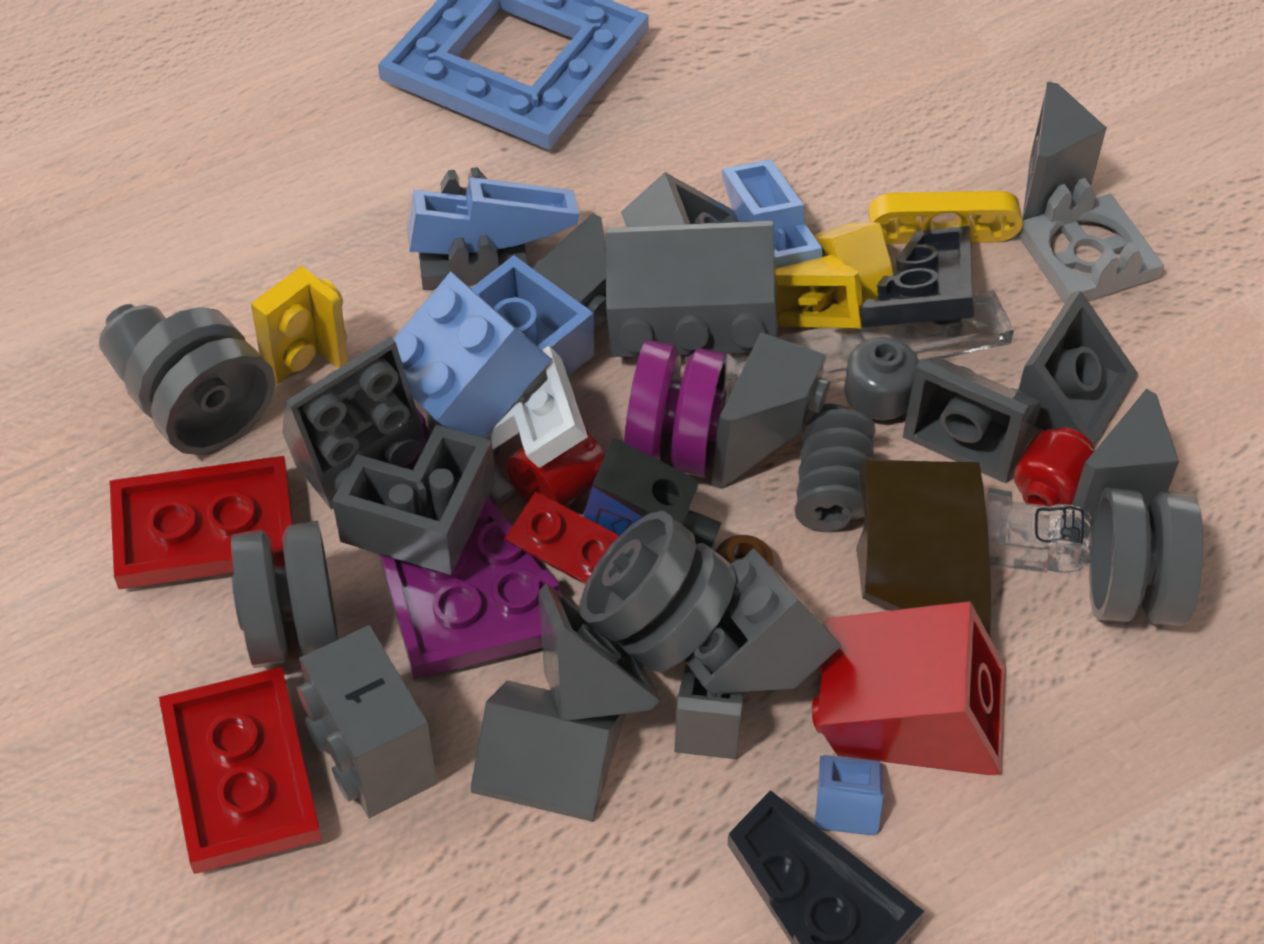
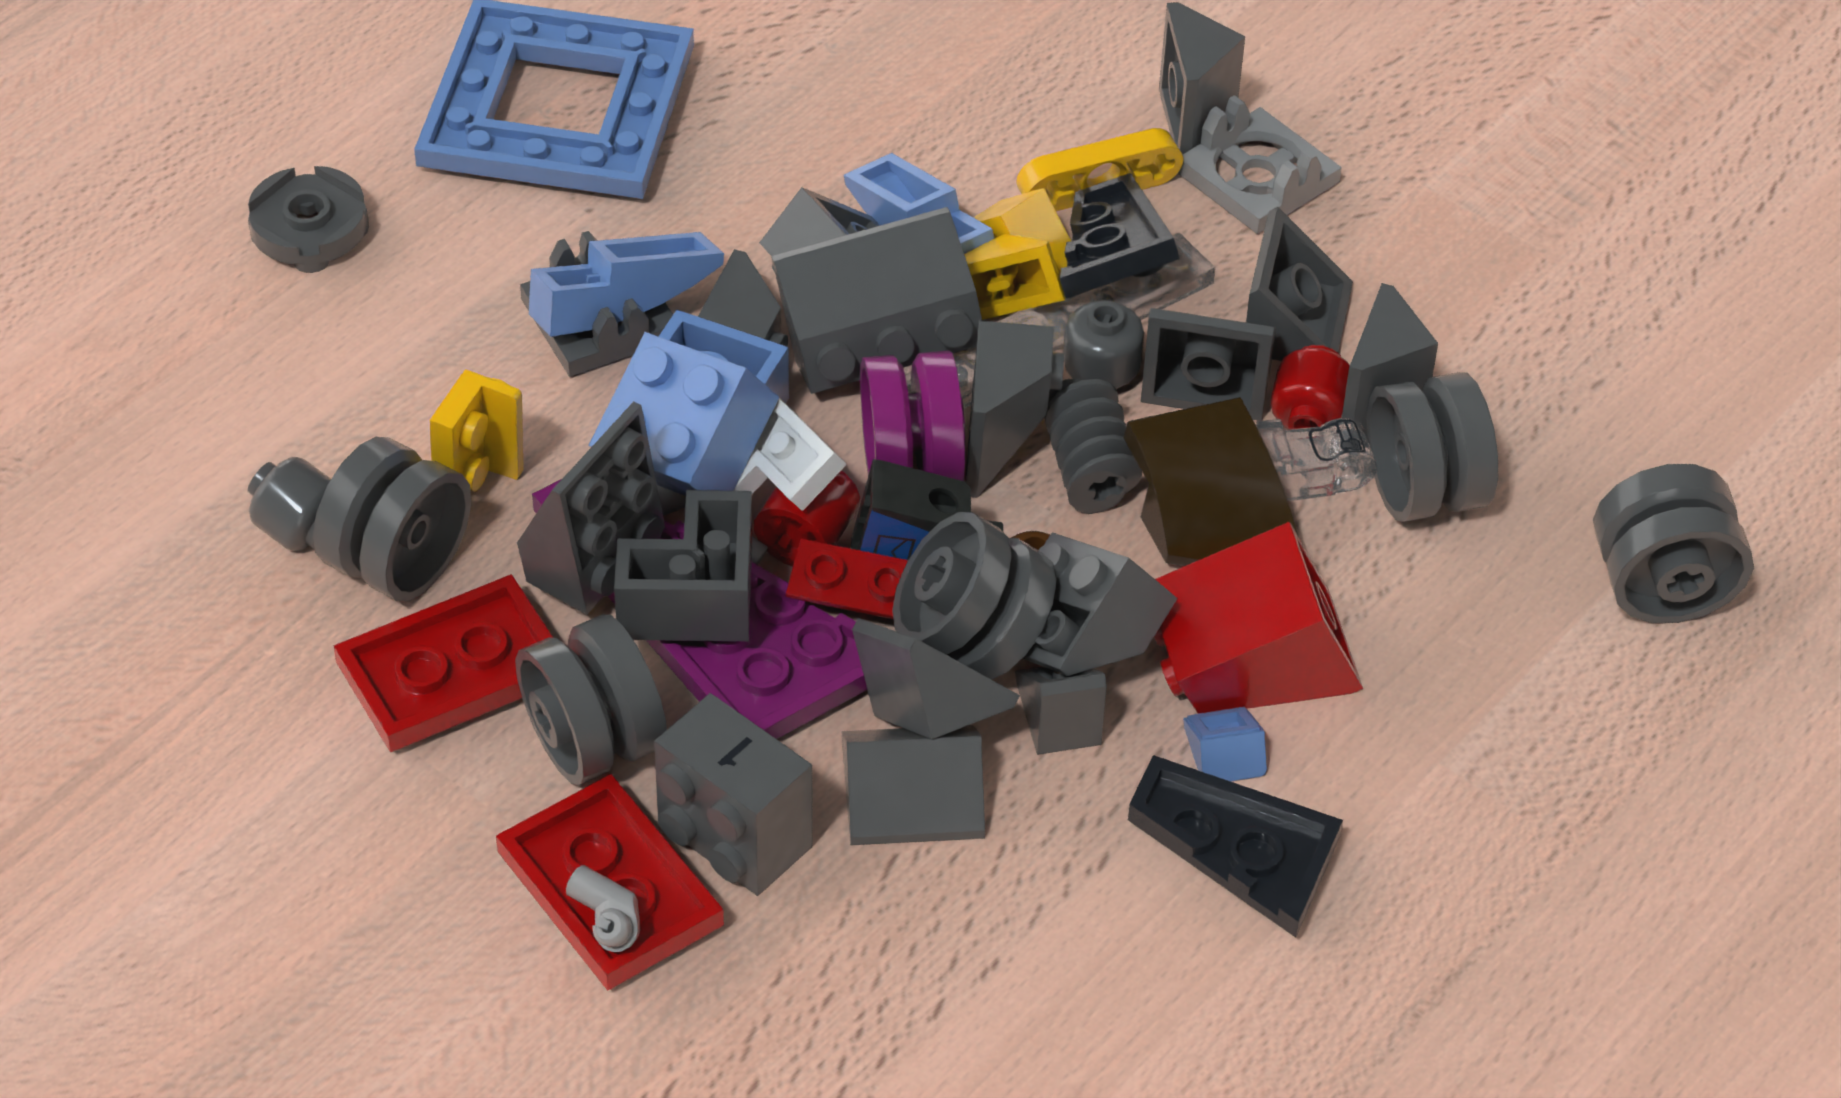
camera: 20 degrees left, 5 degrees down
(219, 803) = (614, 907): none -> light grey arm
(270, 123) = (310, 241): none -> dark grey plate

